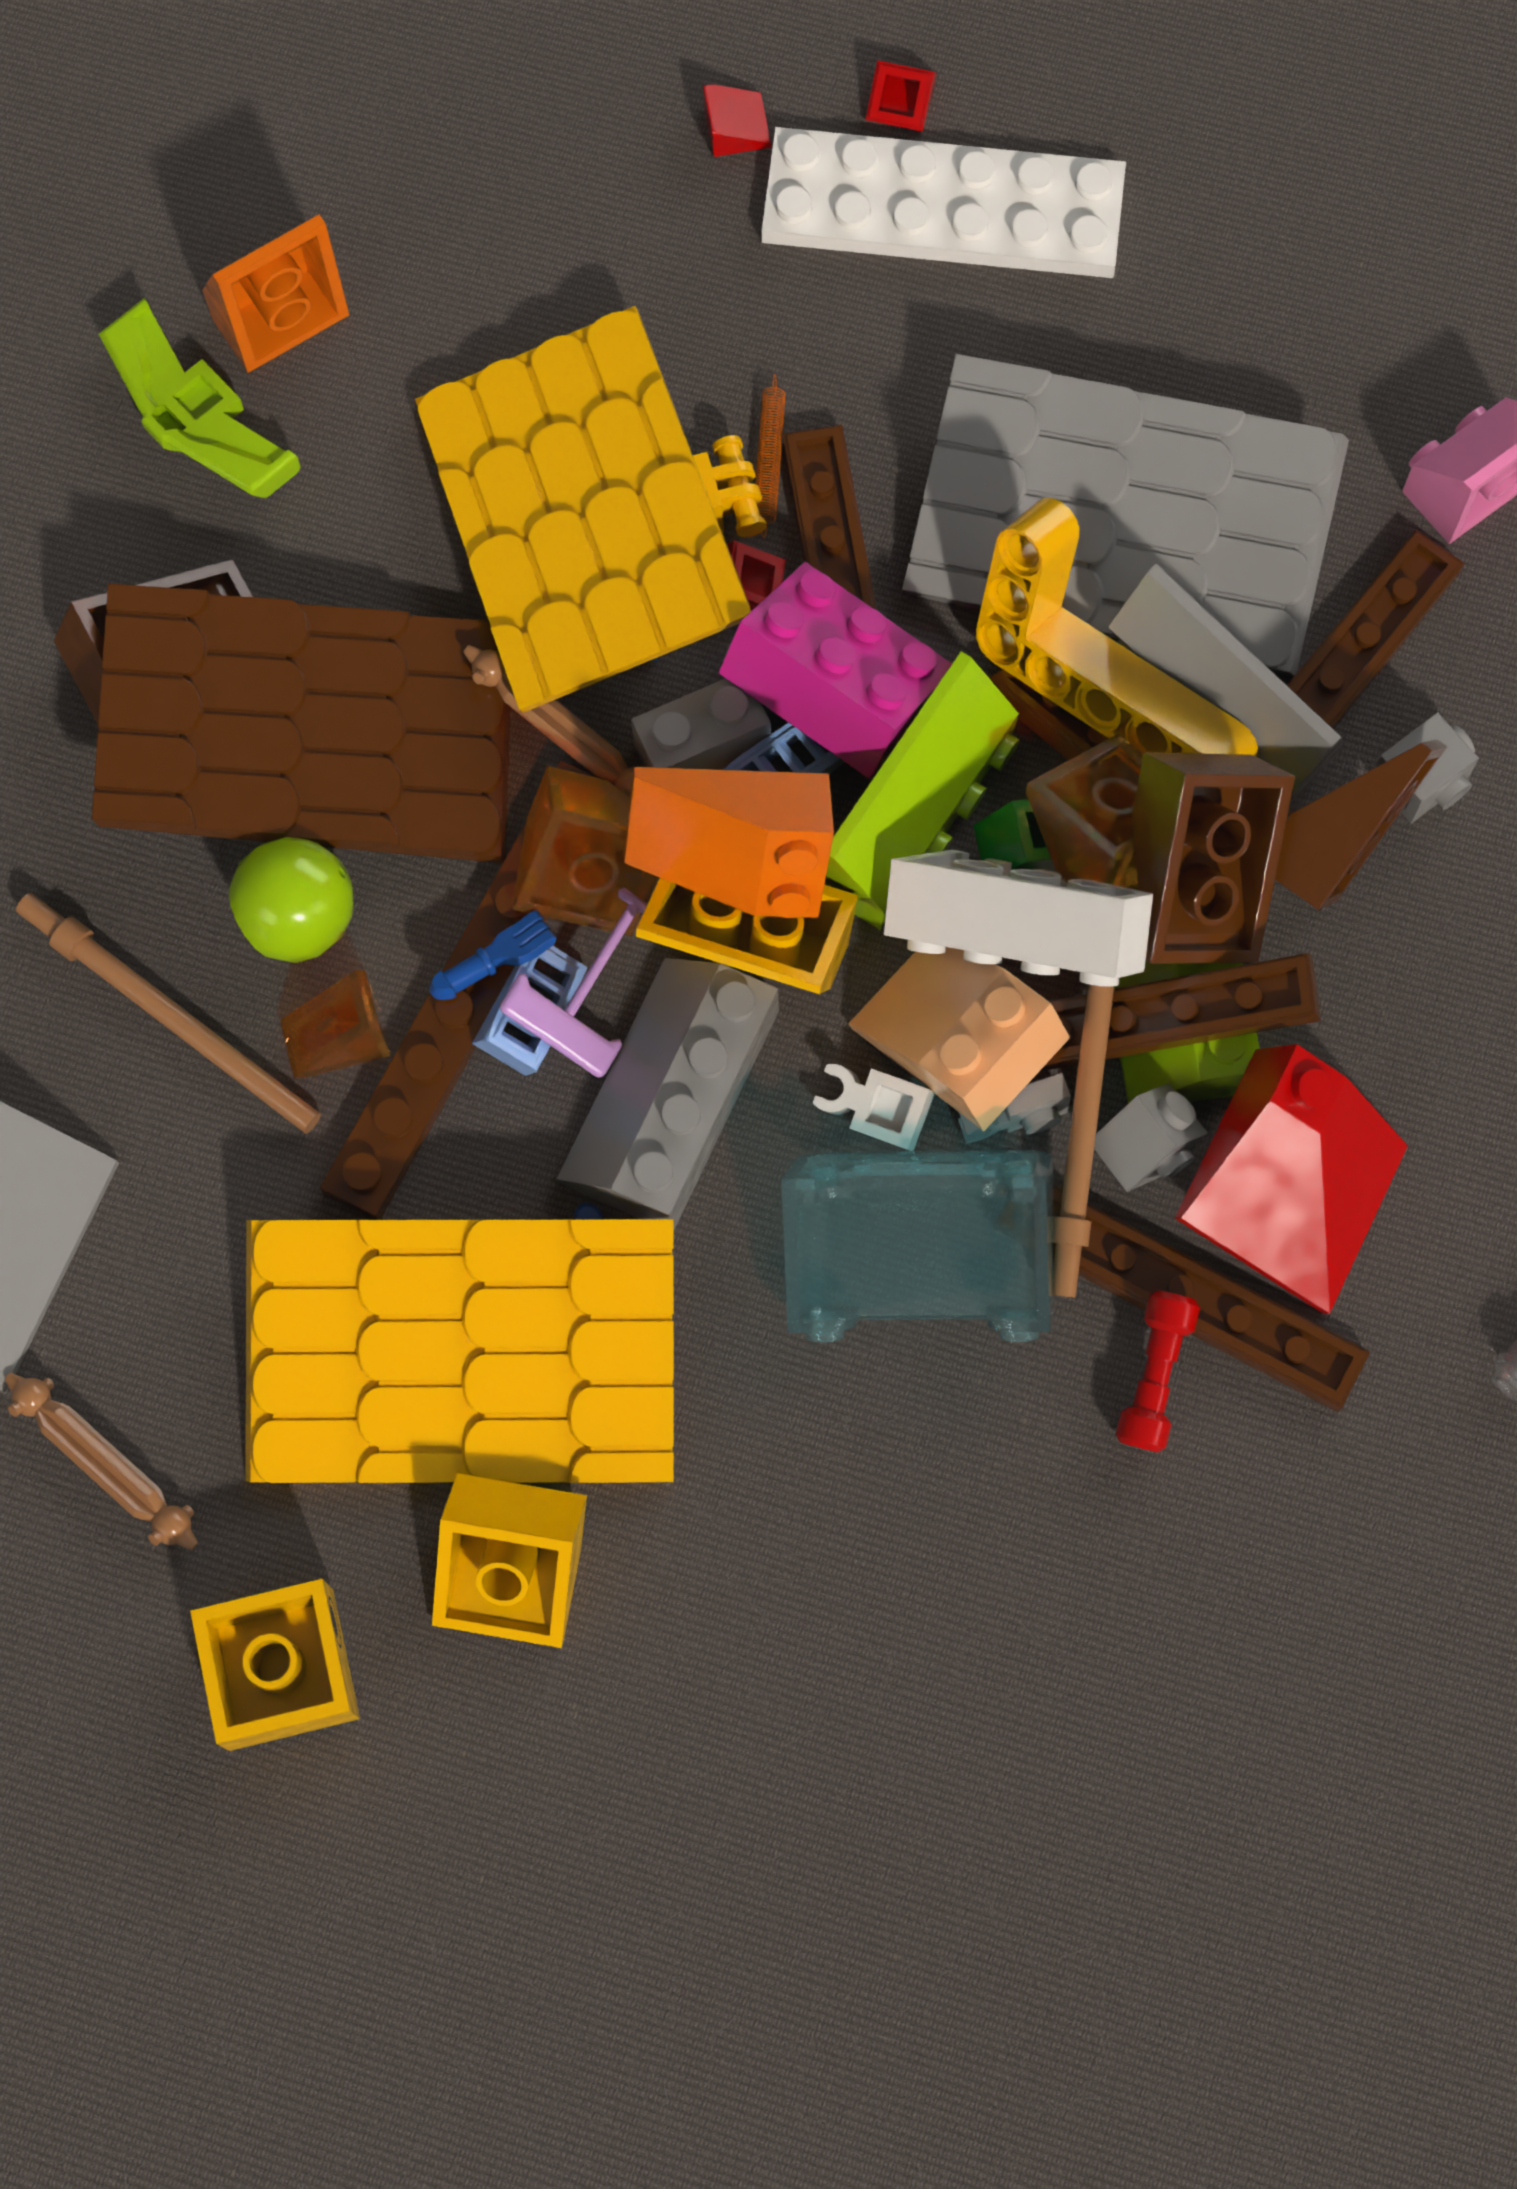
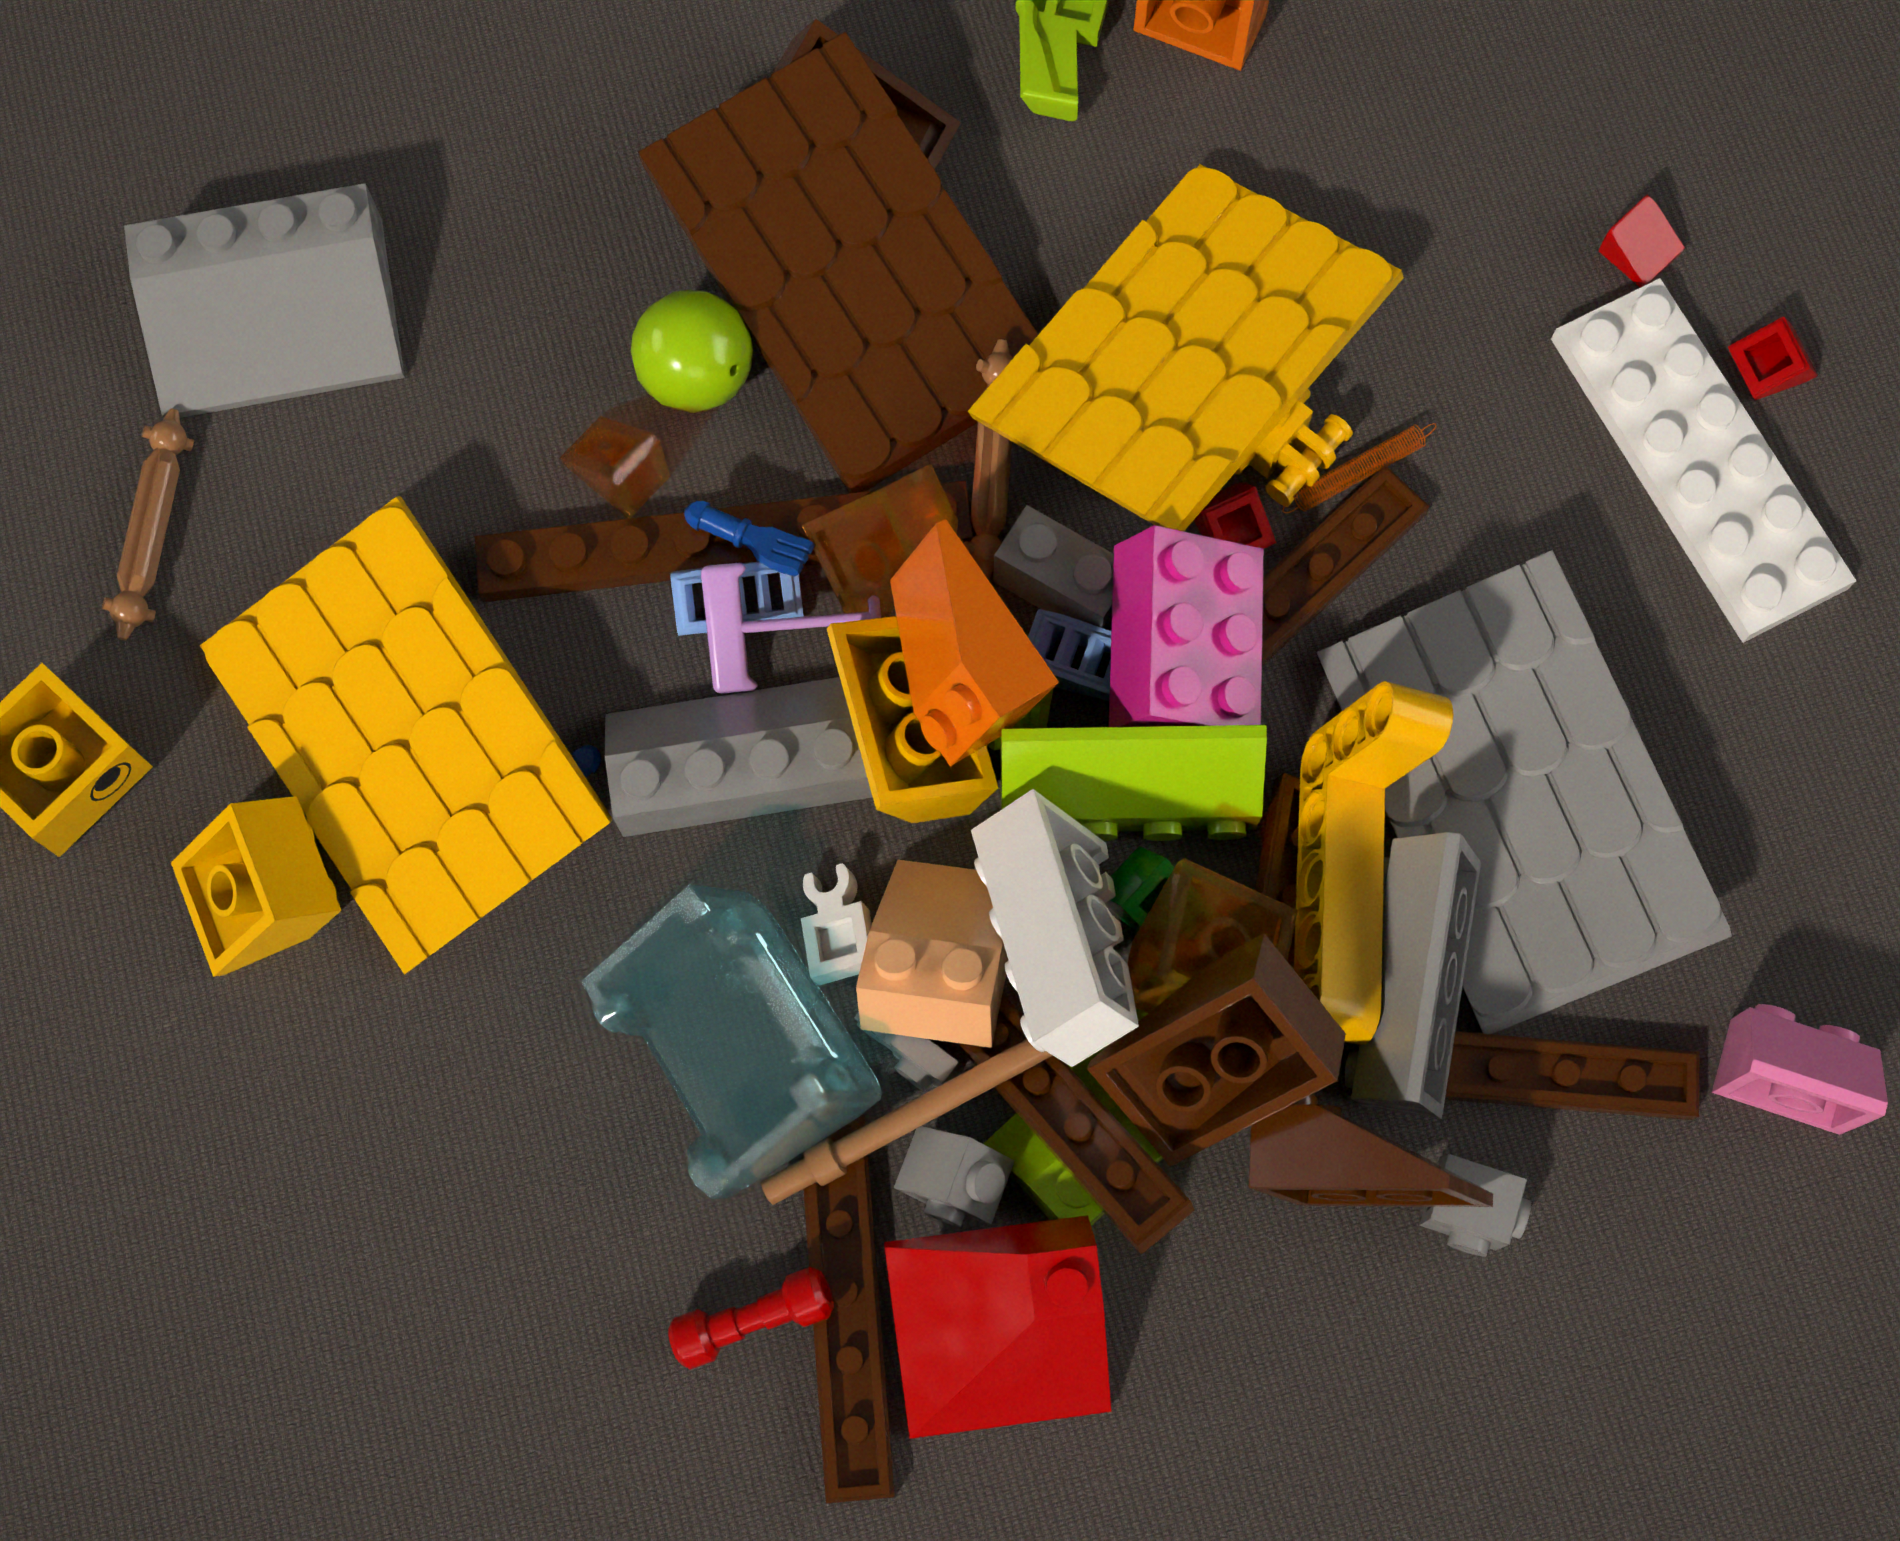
camera: 55 degrees right, 0 degrees up
(76, 941) = (559, 224): medium nougat bar -> none

